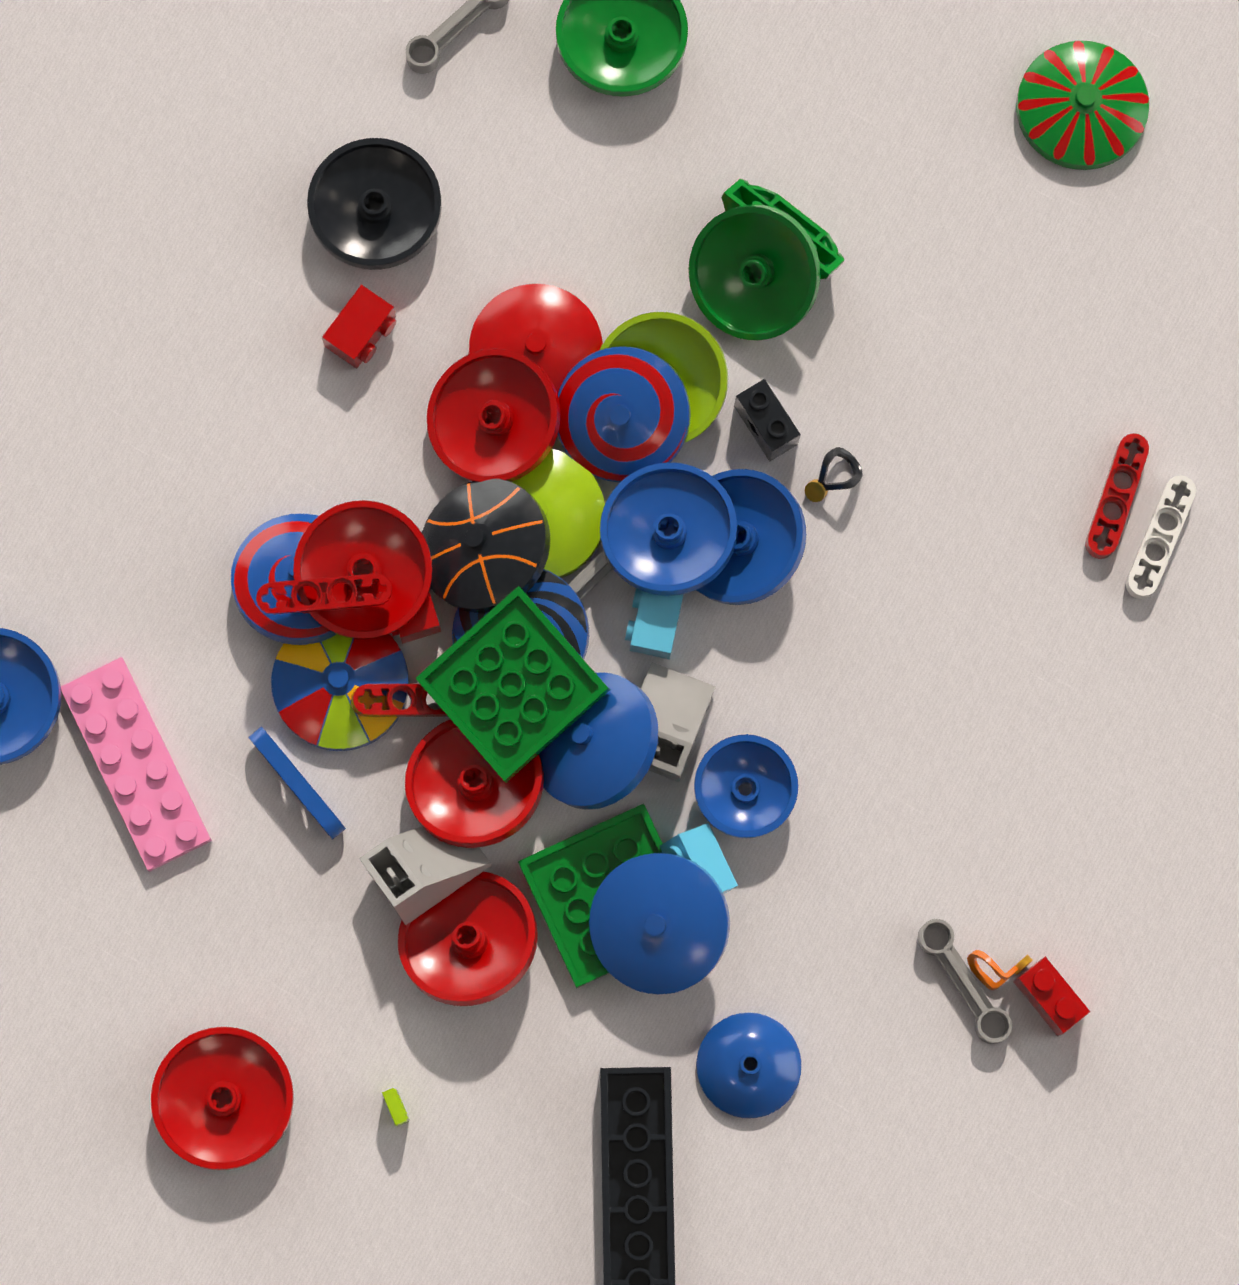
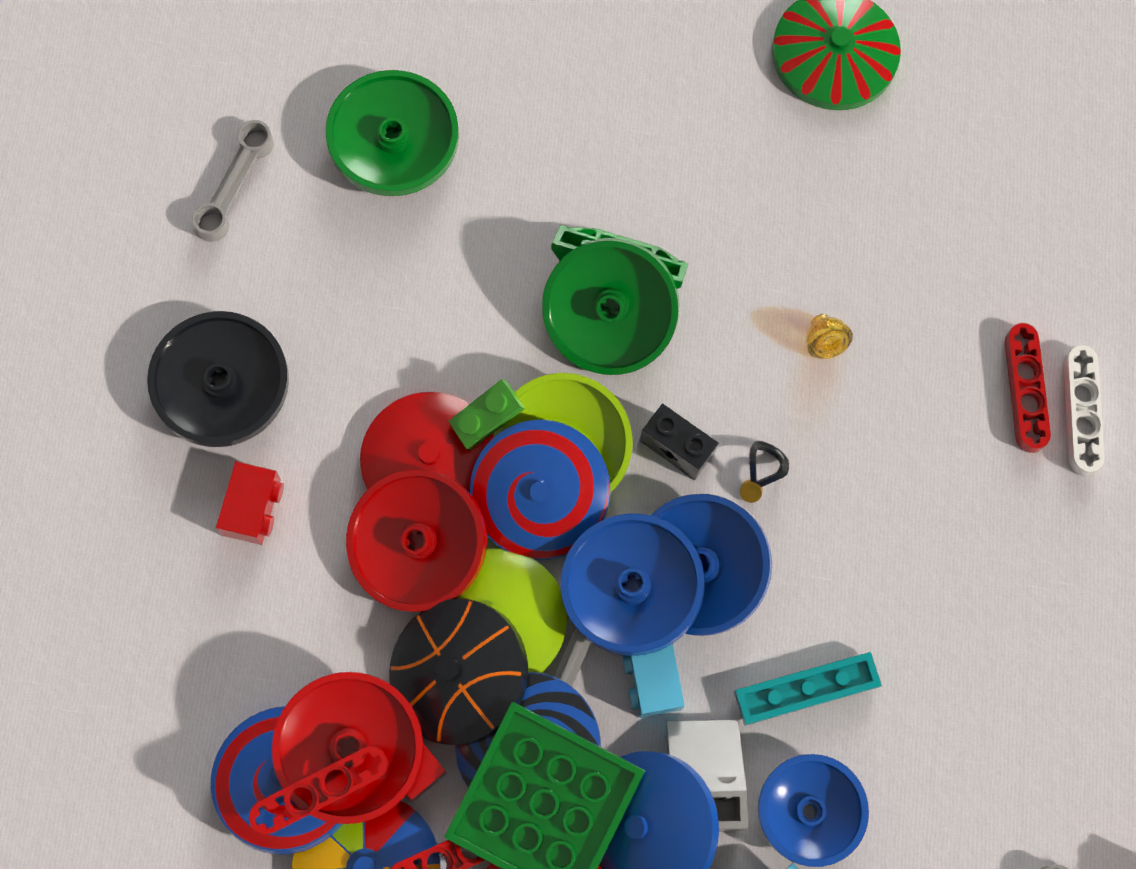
camera: 25 degrees left, 5 degrees down
(600, 328) = (486, 414): none -> bright green plate
(789, 684) = (807, 688): none -> teal plate
(948, 377) = (828, 337): none -> clear yellow brick

